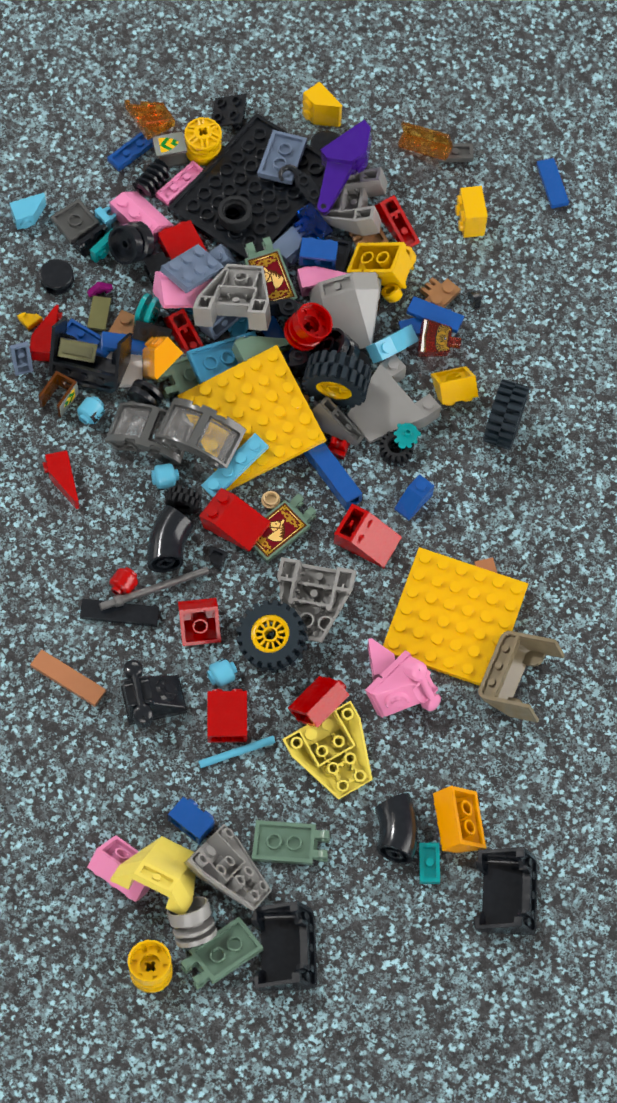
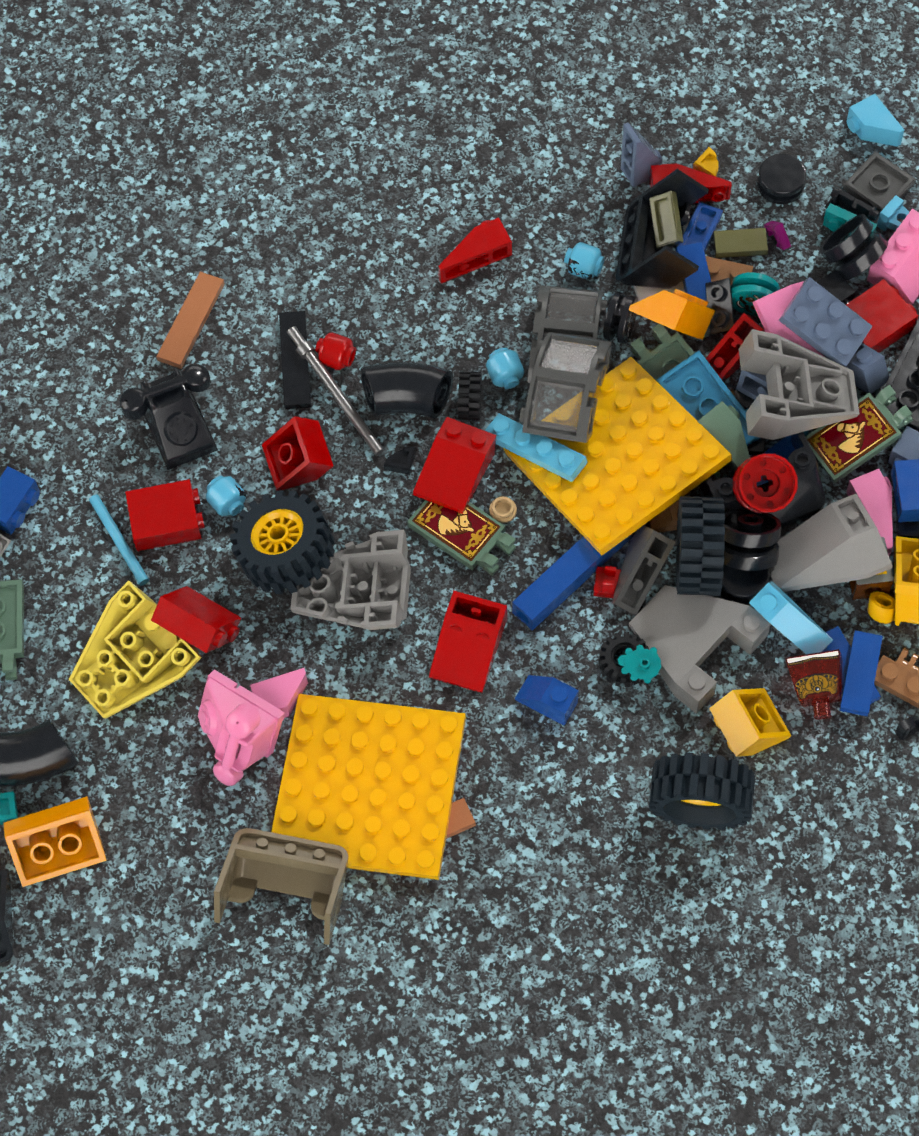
camera: 85 degrees right, 0 degrees up
(55, 381) = (596, 229): reddish brown piece -> none

